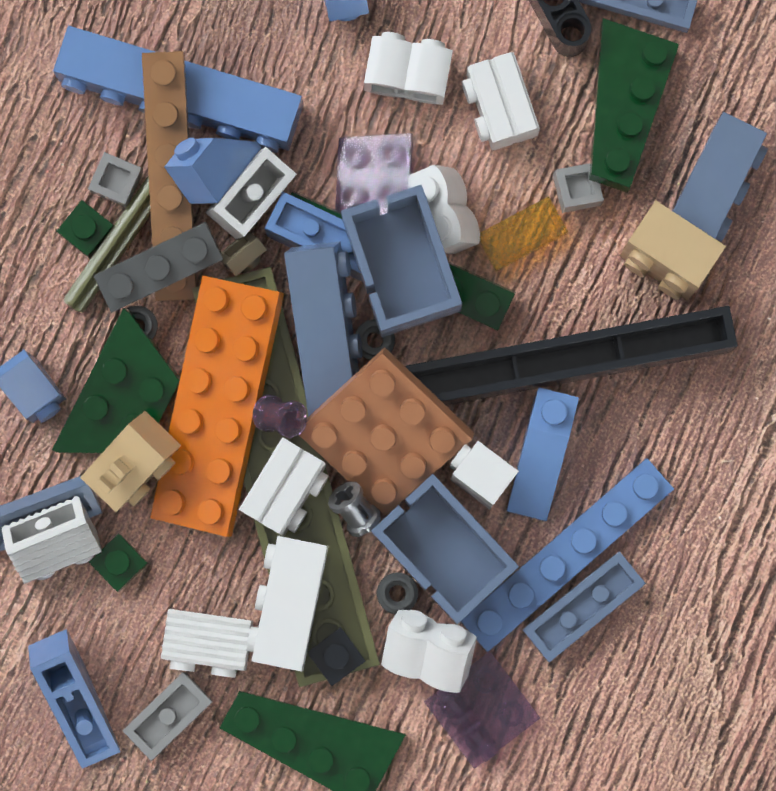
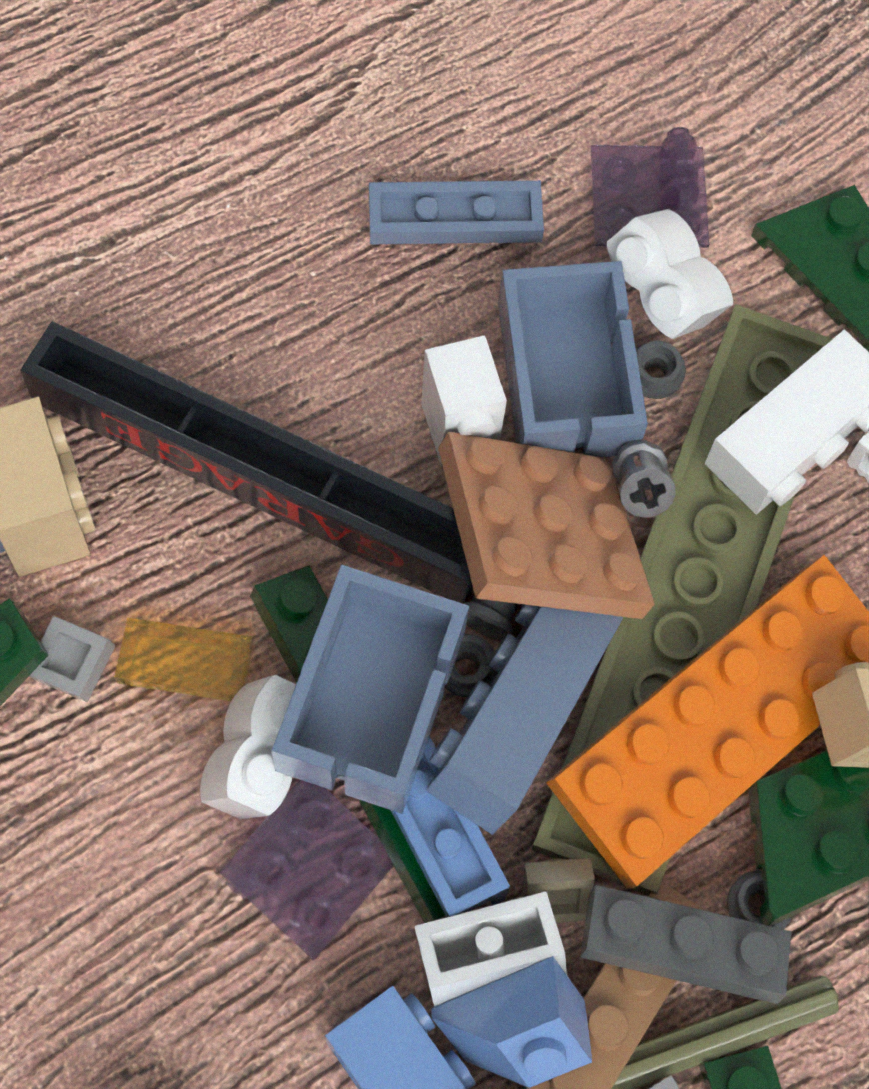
camera: 150 degrees left, 15 degrees down
(284, 488) = (716, 551): white brick -> none
(285, 417) = (660, 627): clear purple bush -> none
(336, 656) = (780, 338): black plate -> none
(408, 68) = (153, 976): white brick -> none
(501, 101) = (71, 837): white brick -> none
(542, 453) = (359, 395): medium blue slope -> none
(567, 554) = (400, 278): medium blue plate -> none

